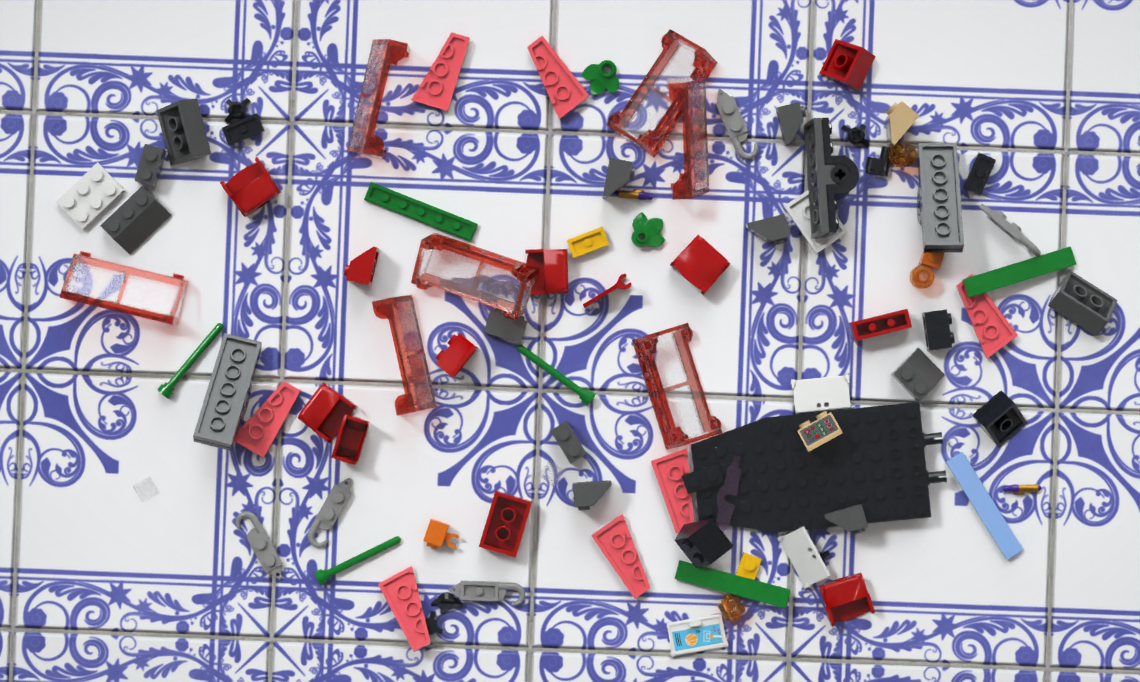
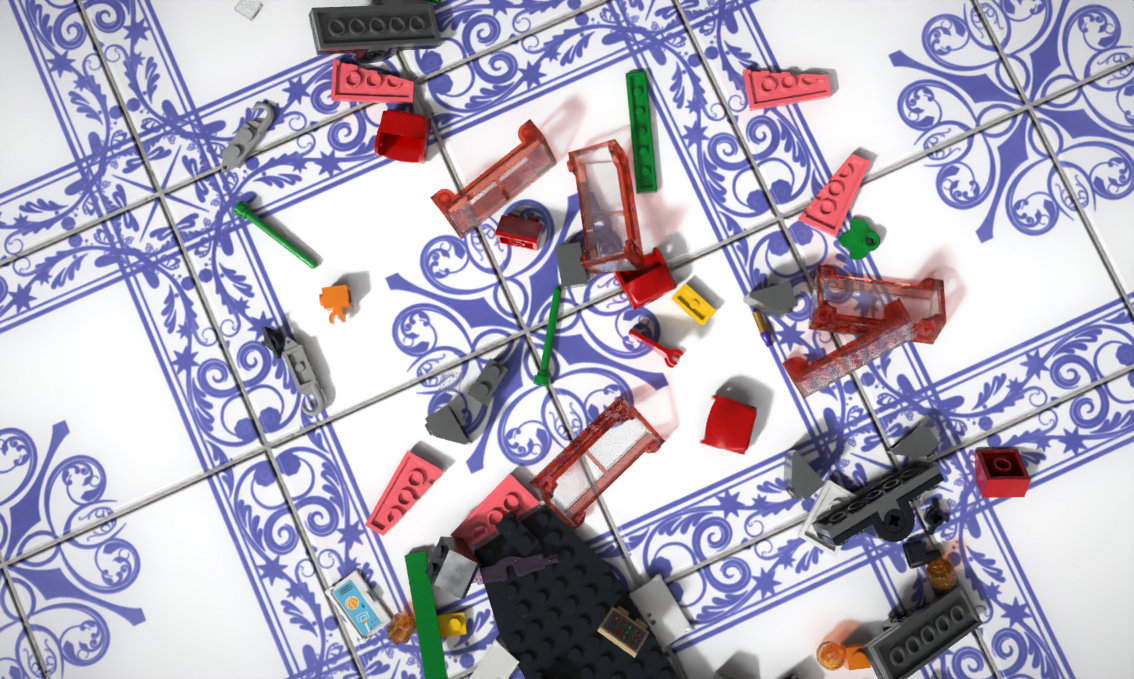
camera: 65 degrees right, 5 degrees down
(330, 511) = (310, 187): light grey plate -> none
(350, 439) = (386, 169): red piece -> none
(362, 136) = (778, 25): windscreen -> none
(362, 268) = (560, 100): red slope -> none
(406, 605) = (251, 303): coral wing -> none
(432, 624) = (241, 336): black piece -> none
(505, 523) = (377, 360): red brick -> none
(649, 229) = (736, 358): green plate -> none
(734, 124) = (882, 390): light grey plate -> none
(880, 325) = (761, 637): red brick -> none
(898, 121) = (975, 552): tan slope -> none
(979, 173) = (963, 661): black plate -> none

